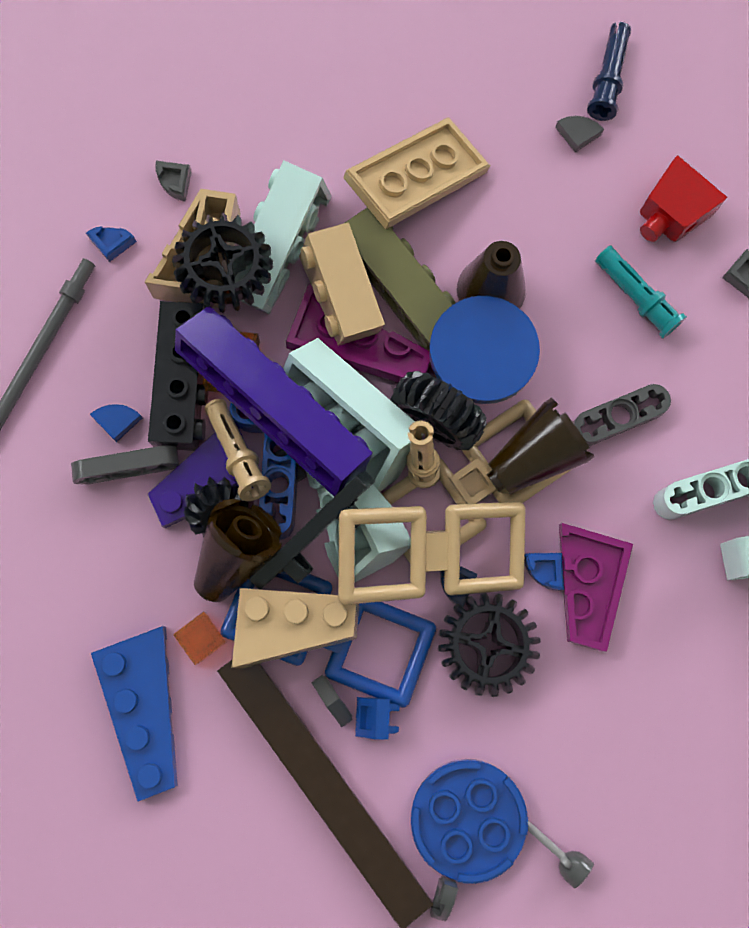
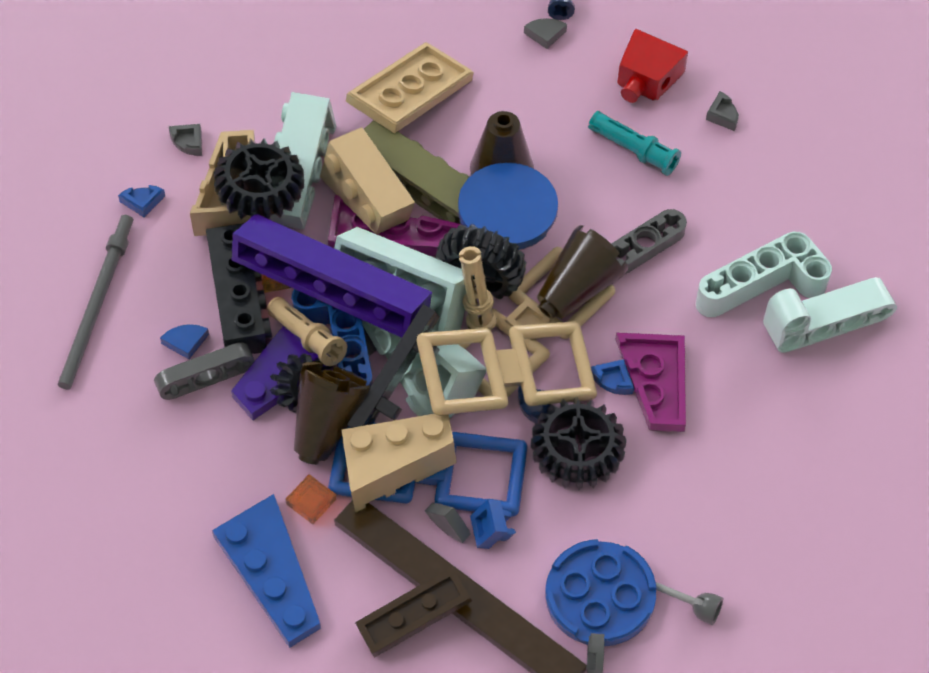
camera: 10 degrees left, 20 degrees down
(270, 804) = (413, 612): none -> dark brown plate

